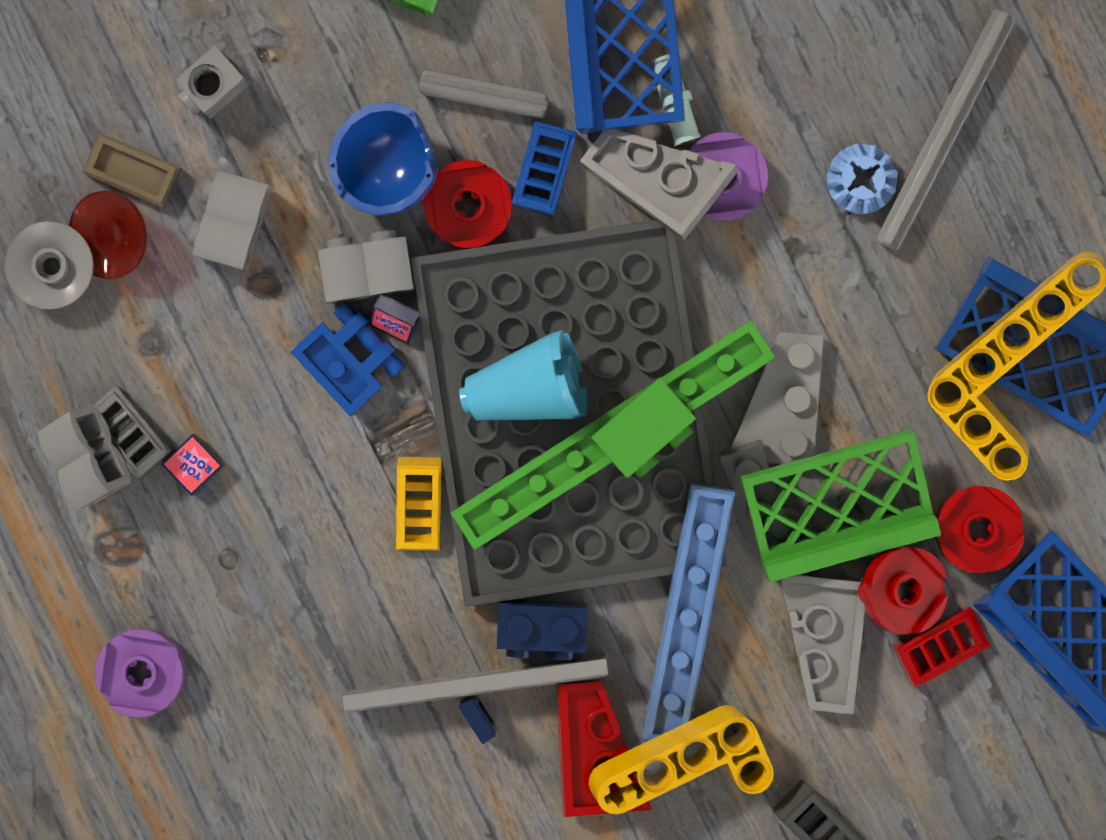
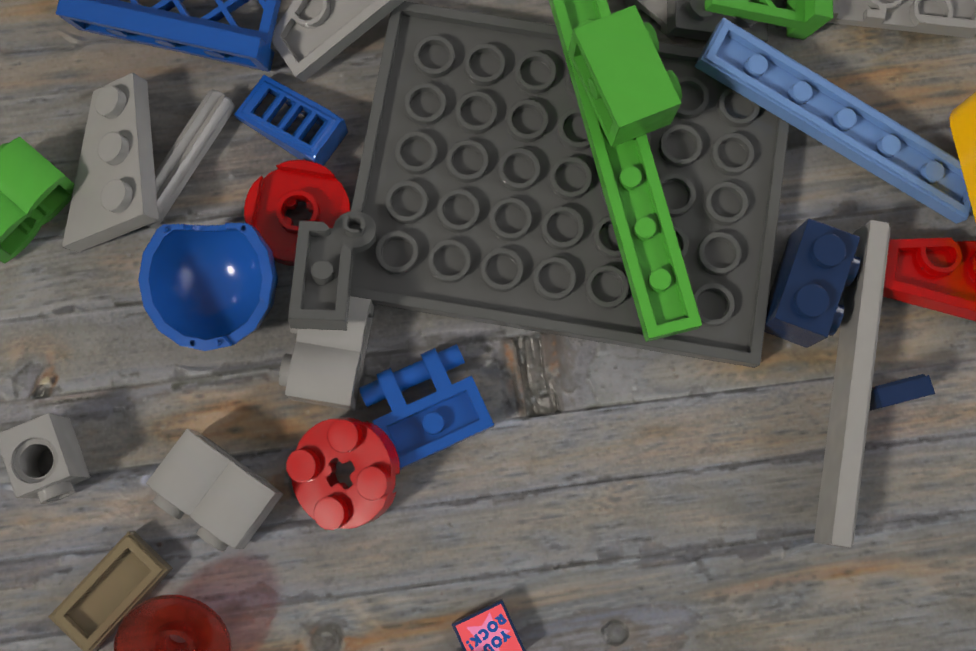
camera: 70 degrees left, 10 degrees down
(257, 300) = (373, 480): none -> red plate
(394, 318) = (398, 335): tile -> none
(418, 466) = (577, 368): yellow slope -> none
(421, 247) = (325, 270): none -> dark grey hinge
(456, 44) = (115, 167): none -> light grey wing
(529, 384) = (528, 196): medium azure cone -> none

